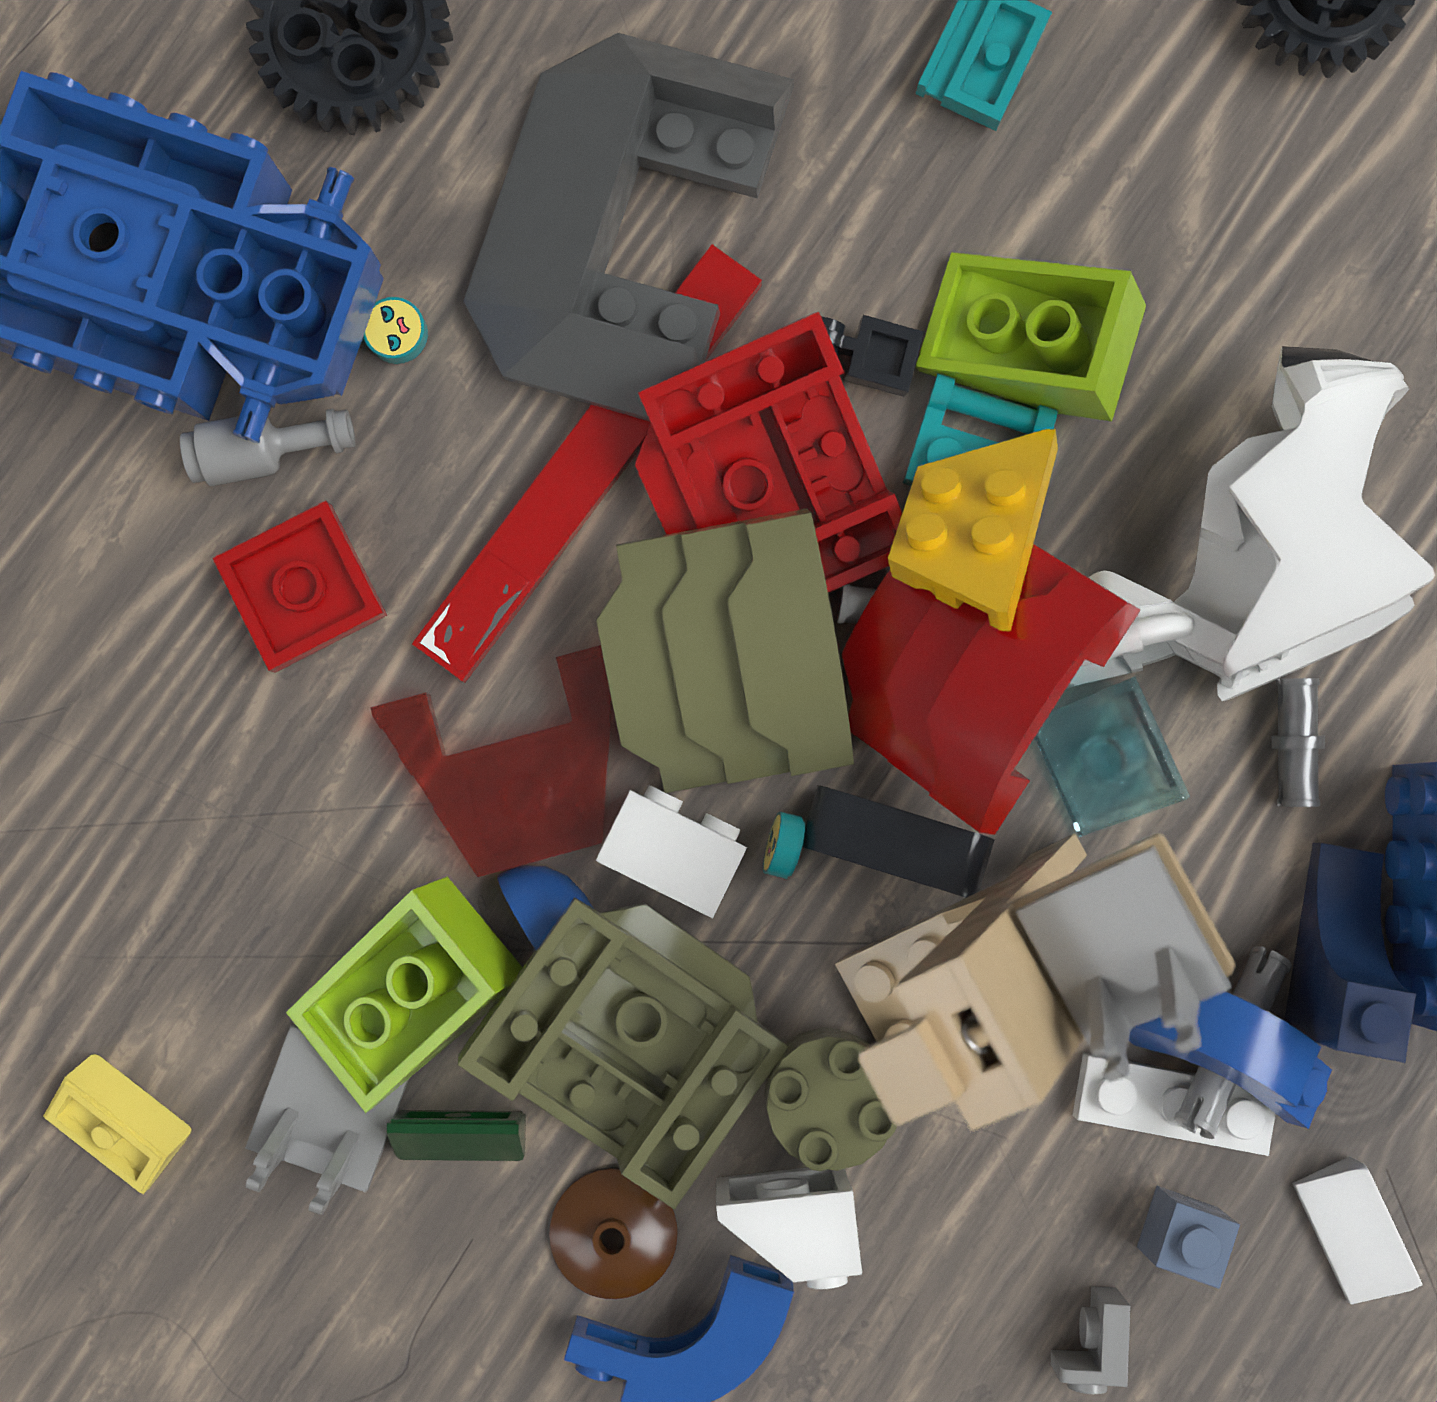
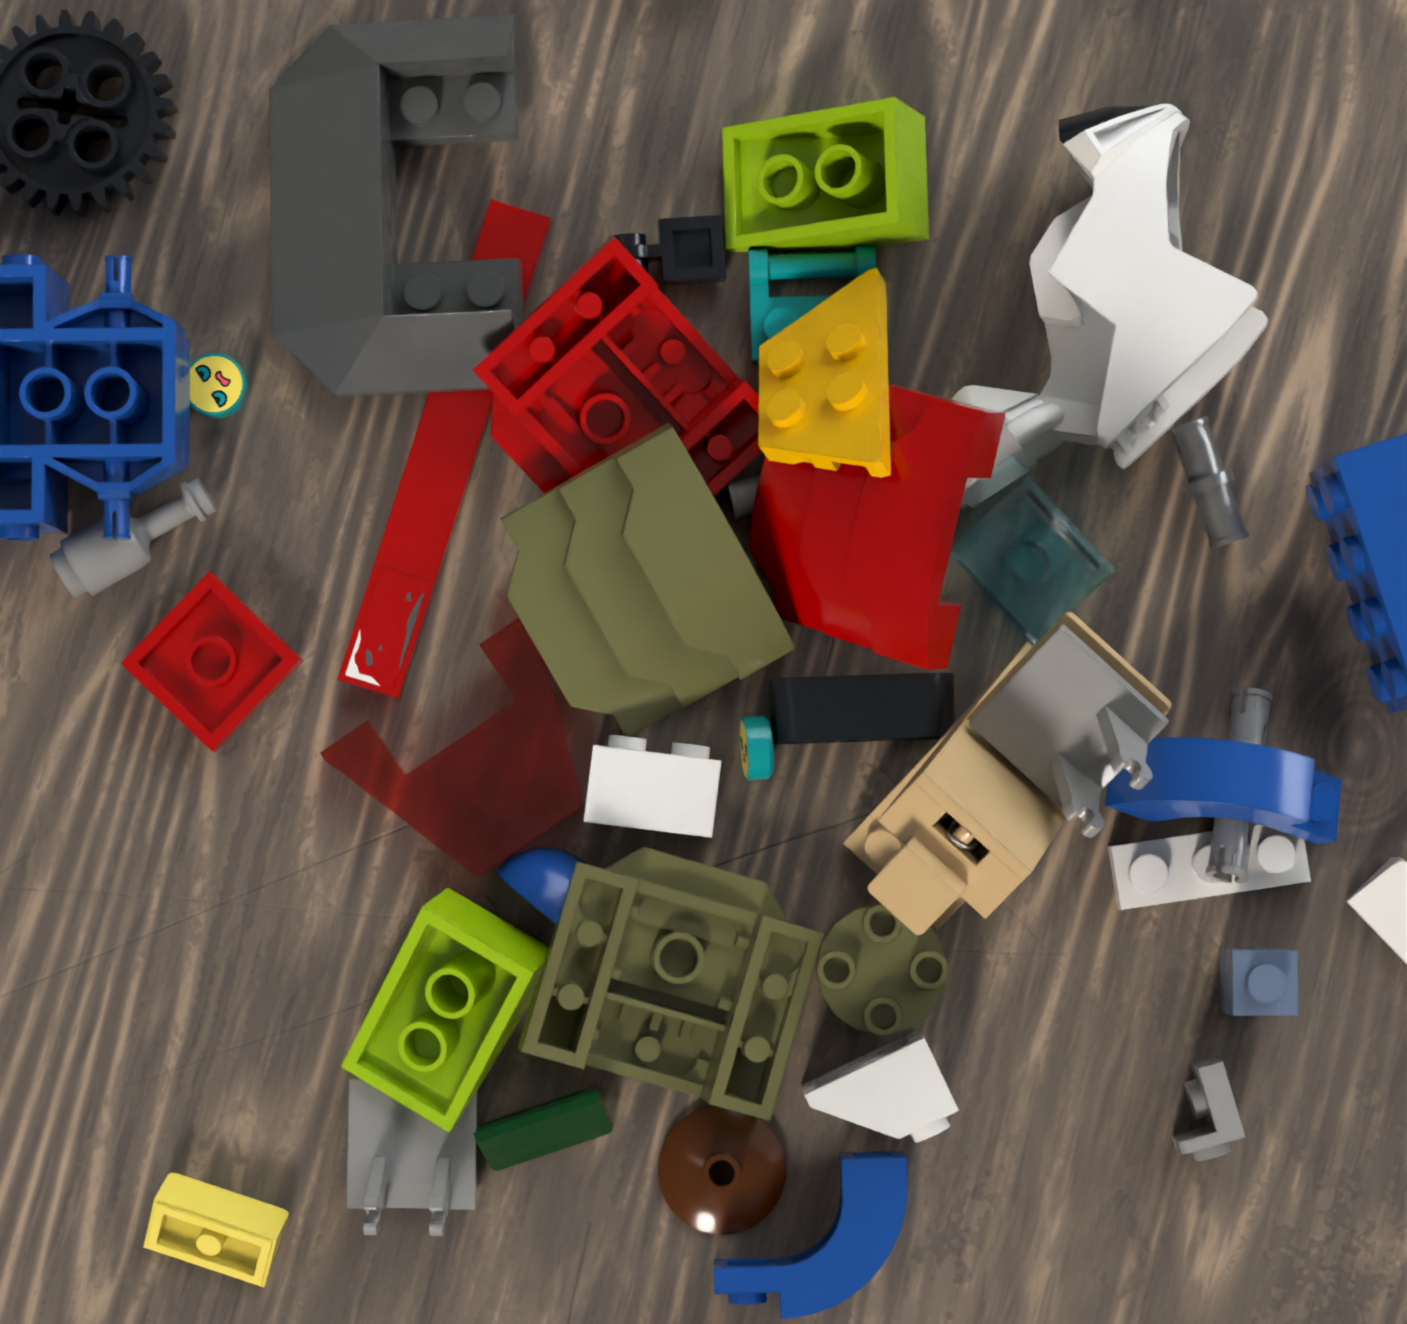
camera: 10 degrees left, 0 degrees up
(1340, 971) = (1320, 688): dark blue arch -> none

